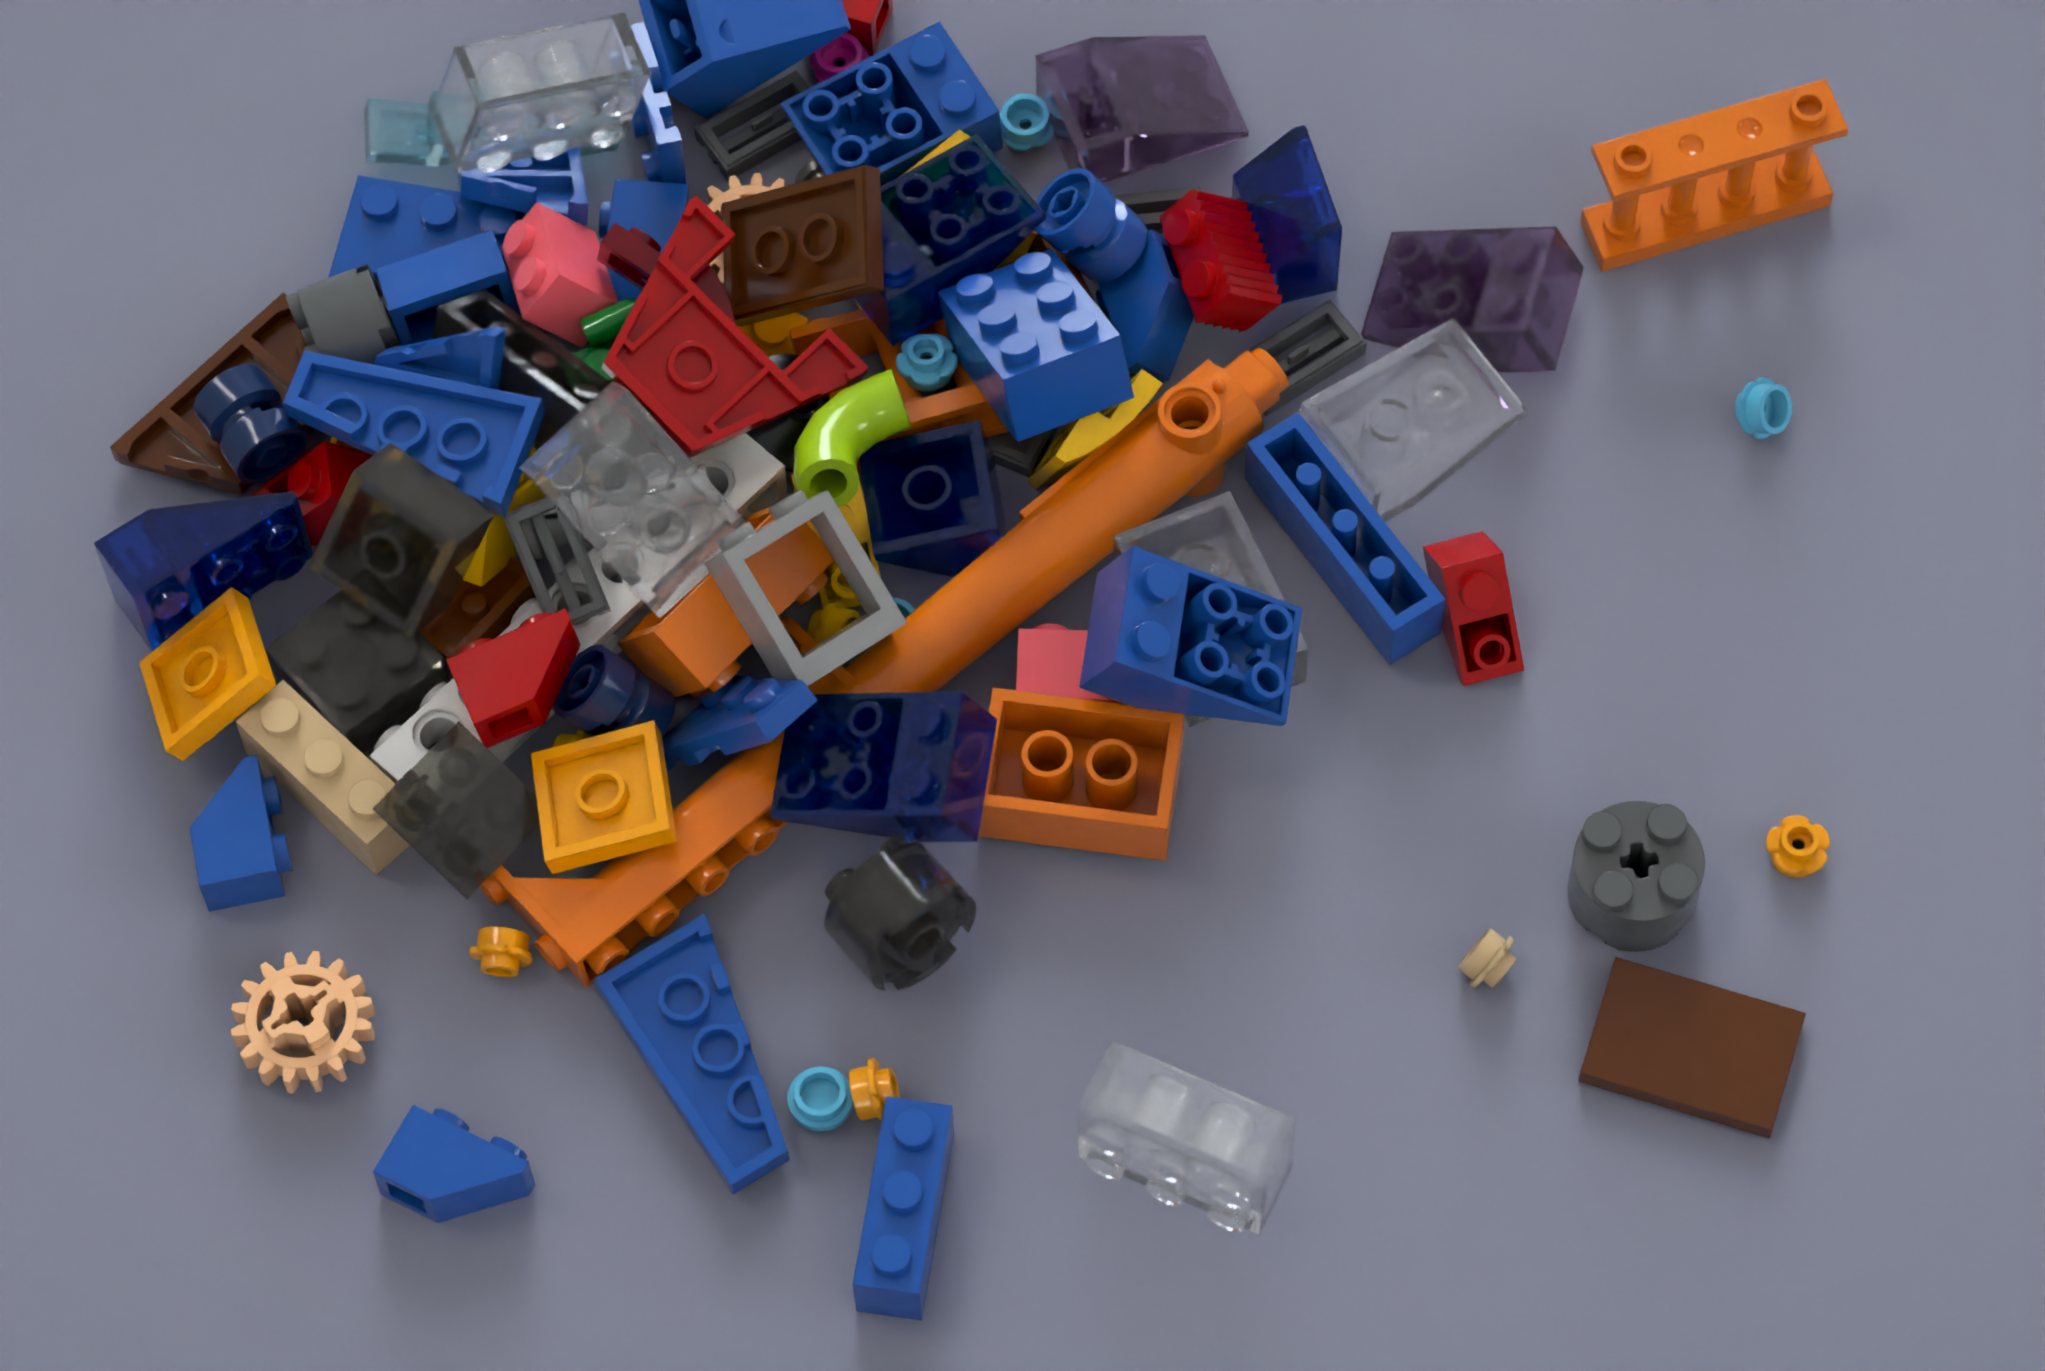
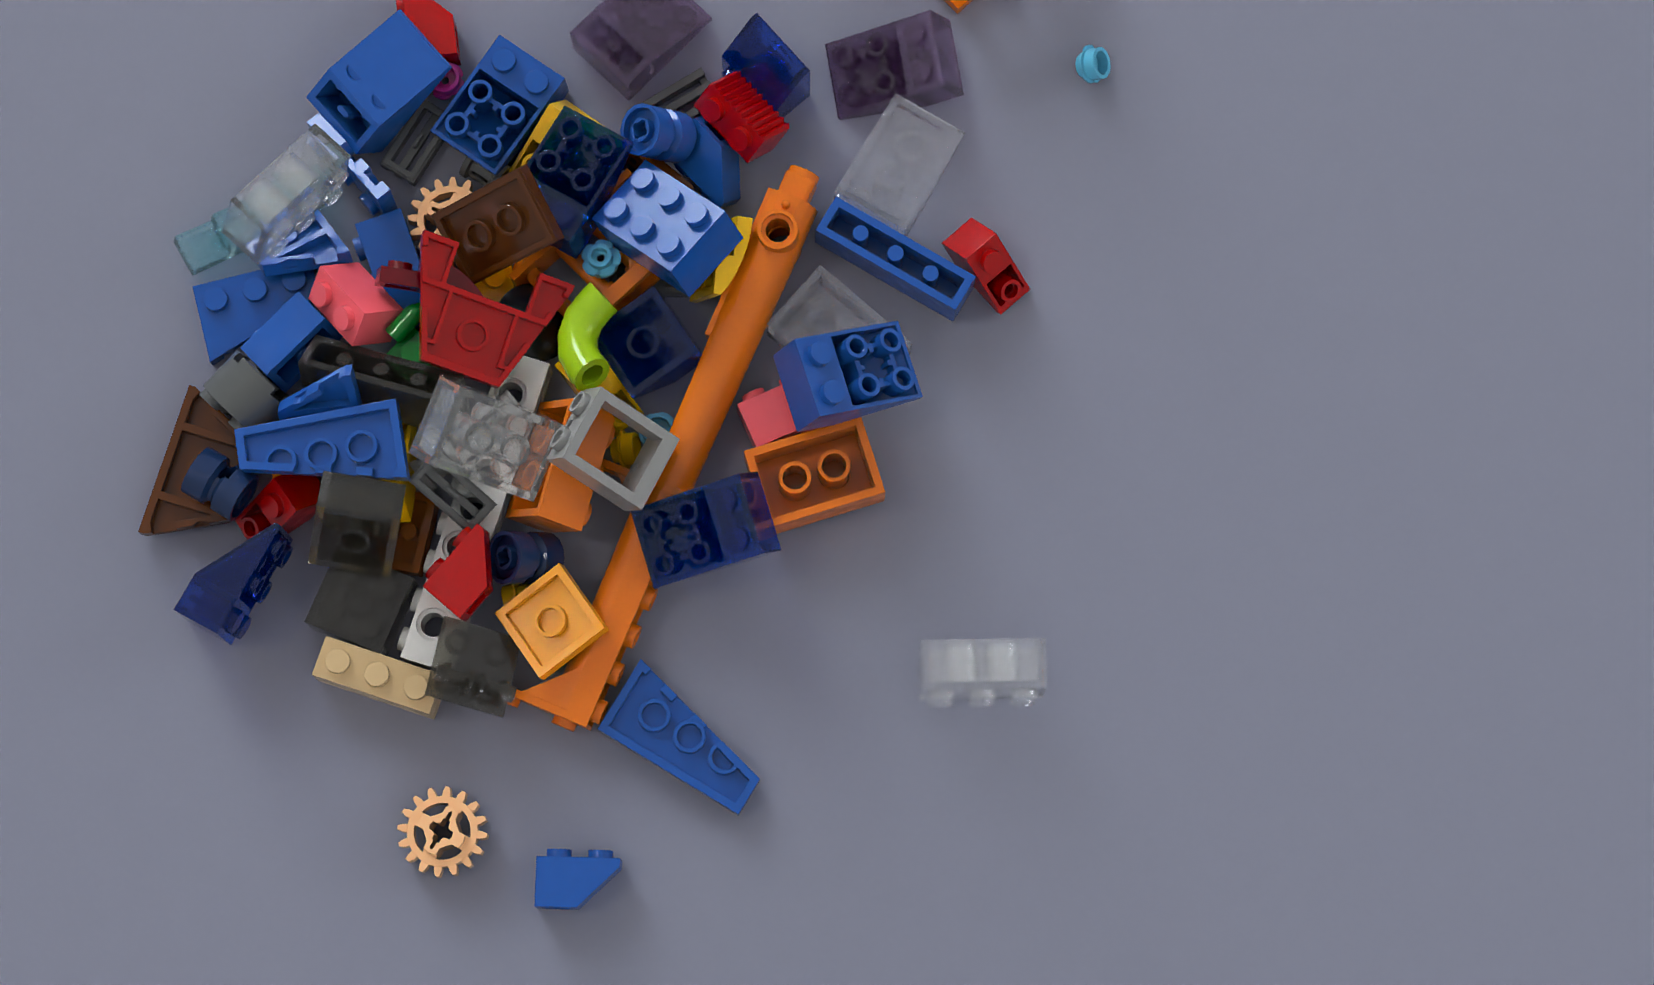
camera: 30 degrees left, 15 degrees up
(207, 674) = (276, 650): light orange plate -> none
(236, 841) = (346, 742): blue slope -> none
(501, 951) = (534, 735): light orange plate -> none
(736, 718) = (608, 537): blue wing -> none
(820, 1099) = (760, 736): medium azure plate -> none
(870, 1087) = (789, 719): light orange plate -> none
(897, 913) = (753, 610): clear smoke brick -> none
(903, 1208) = (841, 781): blue brick -> none
(1025, 109) = (581, 62): medium azure plate -> none
(1325, 365) = (826, 121): dark grey tile -> none
(1488, 959) = (1093, 478): tan plate -> none
(1640, 841) = (1160, 368): dark grey brick -> none
(1692, 1047) = (1228, 476): reddish brown tile -> none
(1792, 861) = (1233, 338): light orange plate -> none

